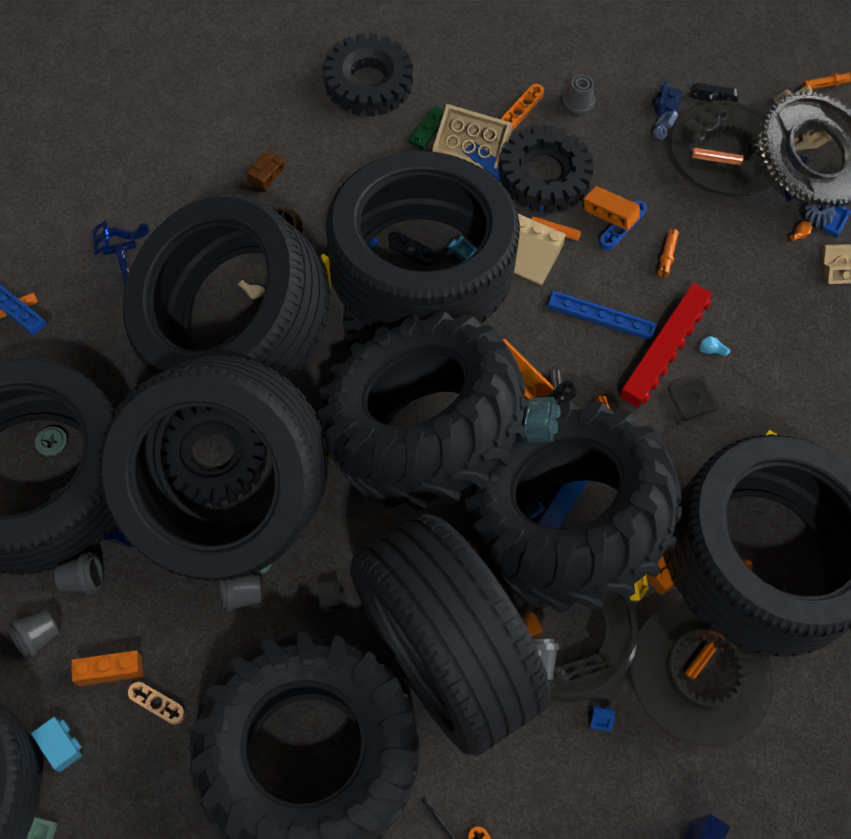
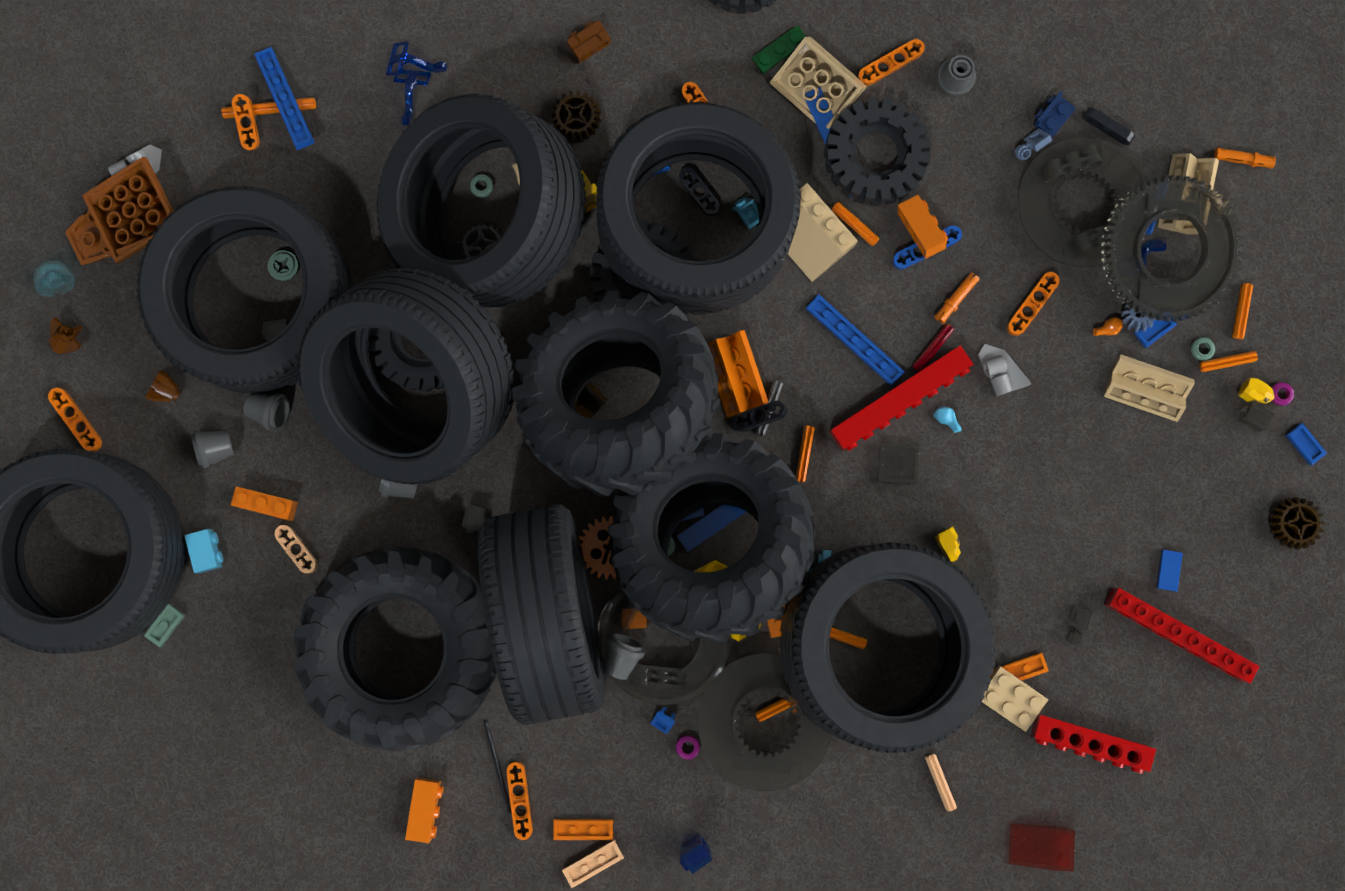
camera: 30 degrees right, 20 degrees up
(216, 316) = (484, 193): none -> sand green piece
(541, 419) = (716, 451): clear light blue brick -> none
(645, 730) = (683, 739): none -> magenta piece
(670, 297) = (933, 347): none -> dark red axle
(717, 156) = (1062, 211): orange axle -> none
(731, 236) = (1033, 304): none -> orange beam
(738, 295) = (1001, 370): none -> light grey panel

